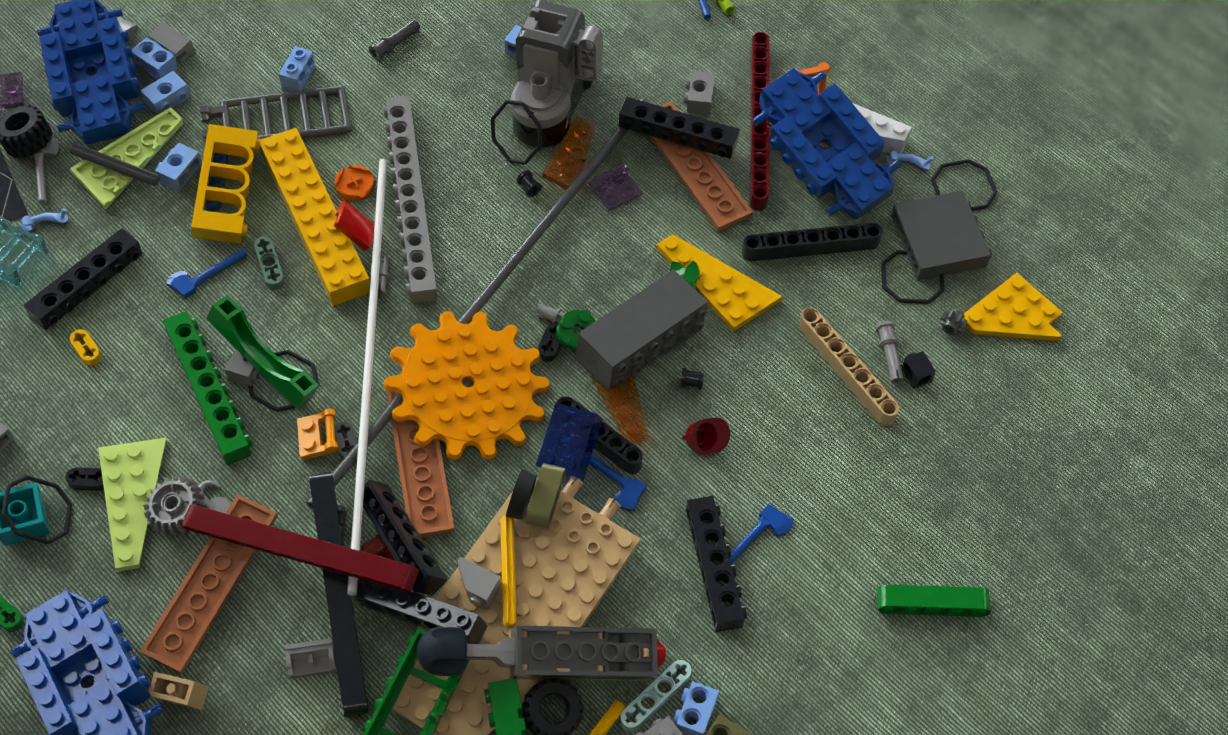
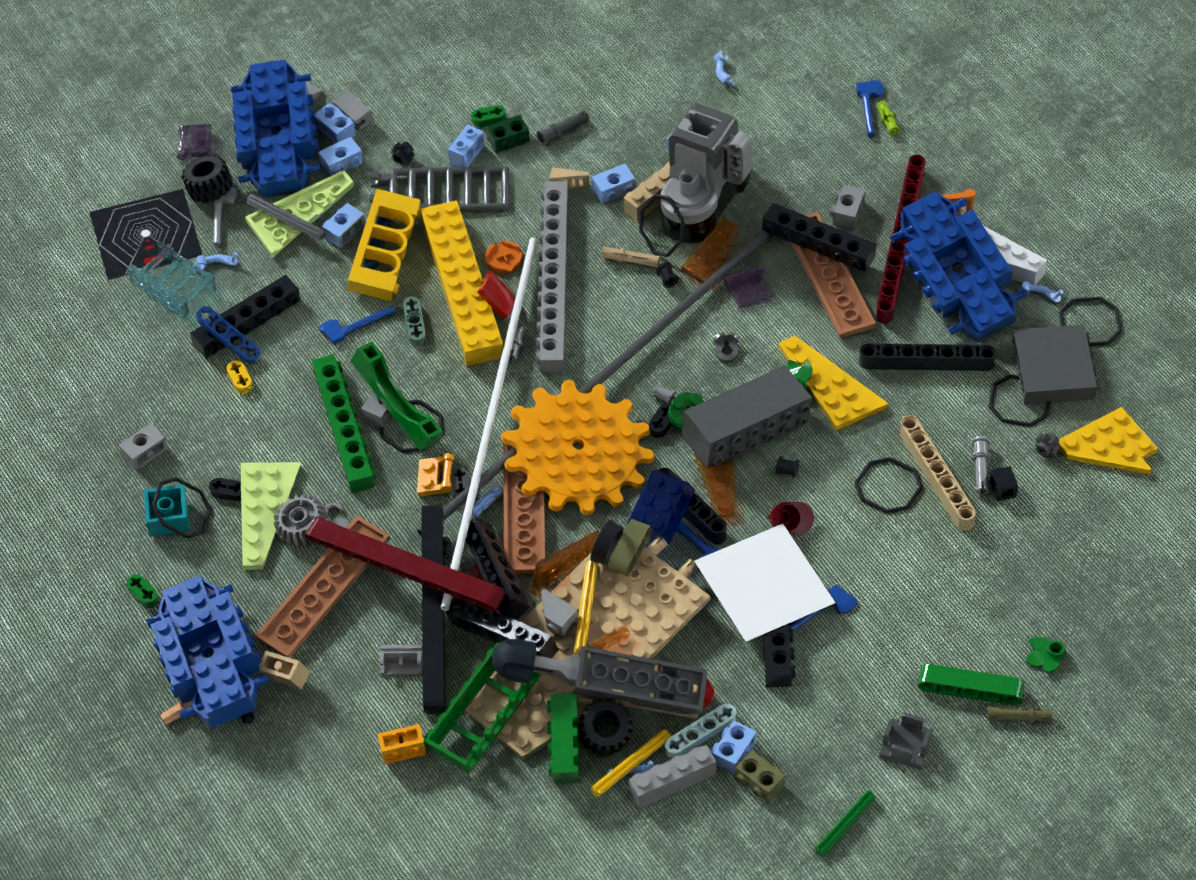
camera: 15 degrees right, 5 degrees down
(64, 305) = (230, 332): none -> blue beam
(231, 82) = (402, 153): none -> black gear
(315, 35) = (488, 116): none -> green beam
(338, 51) = (508, 134): none -> dark green brick
(377, 456) = (486, 501): none -> light blue axle
(411, 89) = (571, 177): none -> tan slope
(457, 93) = (613, 183): none -> light blue brick
(462, 166) = (608, 253): none -> tan pin
(473, 516) = (561, 561): none -> clear orange wing
(493, 98) = (635, 200): none -> tan brick
(542, 604) = (611, 638): none -> clear orange axle
(607, 245) = (731, 339): none -> flat silver piece
(695, 514) = (764, 582): none -> white sticker
(792, 409) = (878, 506): none -> black piece
(879, 676) = (906, 741): none -> dark grey panel
(982, 628) = (1019, 714): none -> olive pin
(999, 556) = (1044, 655): none -> green plate

